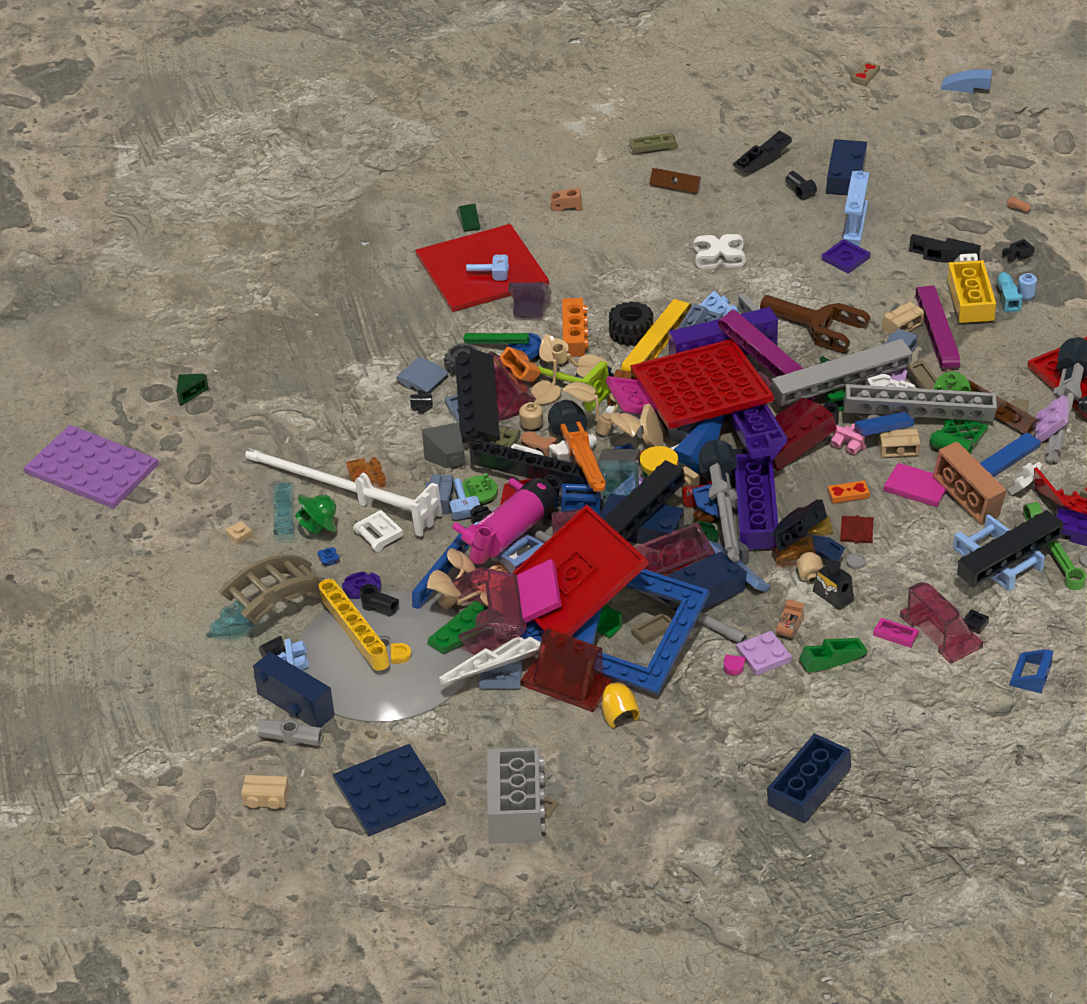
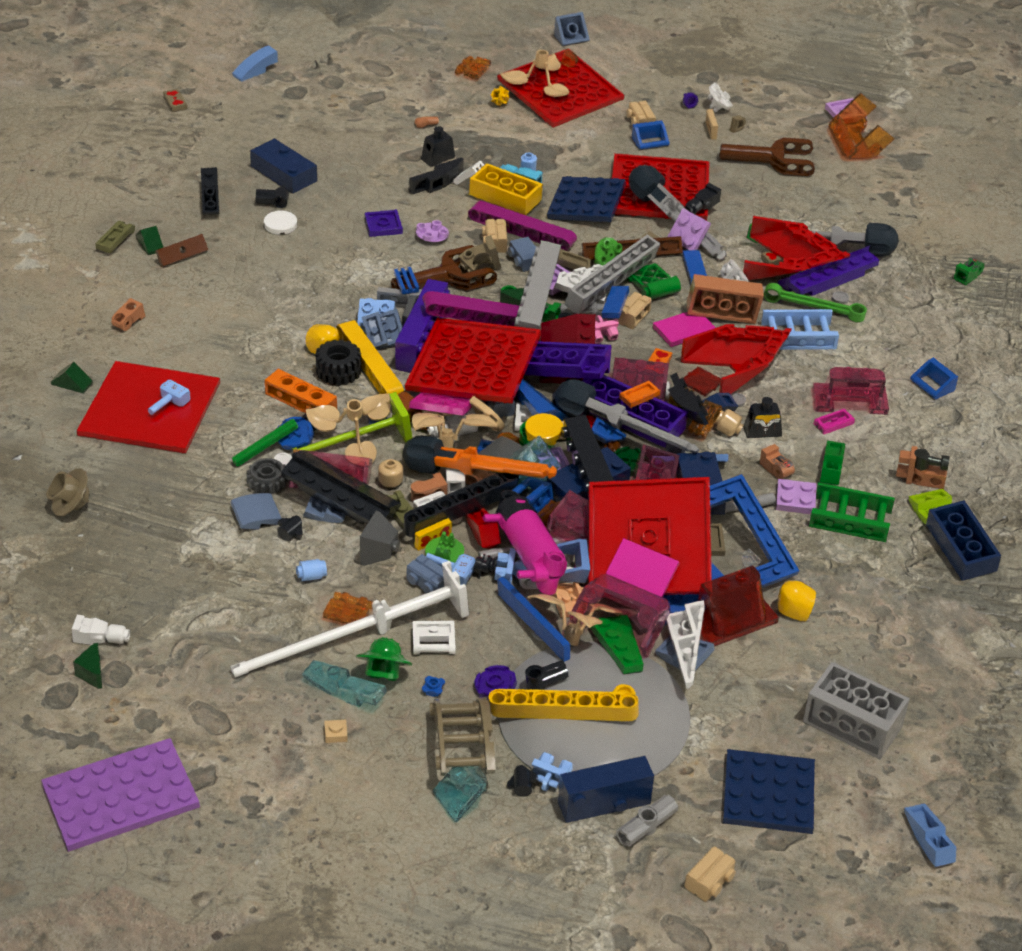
camera: 60 degrees left, 0 degrees up
(223, 371) = (97, 631): none -> white piece
(340, 280) = (68, 491): none -> dark tan helmet
(386, 434) = (311, 570): none -> light blue brick
(422, 905) = (931, 835): none -> medium blue slope
(497, 473) = (434, 531): none -> yellow tile
(520, 364) = (319, 442): orange brick -> none
(529, 299) = (238, 399): clear purple piece -> none
(652, 298) = (319, 334): none -> yellow piece
(670, 159) = (150, 239): none -> dark green slope
(719, 251) = (301, 275): white piece -> none
(734, 664) = (795, 518): dark pink tile -> none
(762, 705) = (849, 524): none -> green fence
(765, 298) = (404, 273): none -> blue tile
(766, 492) = (639, 394): none -> orange tile
(776, 207) = (280, 222): none -> white tile
(803, 485) = (636, 372): none -> clear pink slope
(849, 322) = (478, 255): none -> dark tan tile
(853, 739) = (923, 502): none -> lime slope
(856, 207) = (339, 190): light blue fence -> none
(865, 285) = (432, 231): none -> lavender dish
(882, 717) = (923, 468): none -> nougat hips
(910, 518) = (742, 349): none -> red windscreen
(980, 227) = (437, 147): none -> black torso
(1009, 548) = (817, 317): black brick -> none
(1020, 248) = (479, 147): black plate -> none
(1021, 341) = (586, 199): none -> dark blue plate

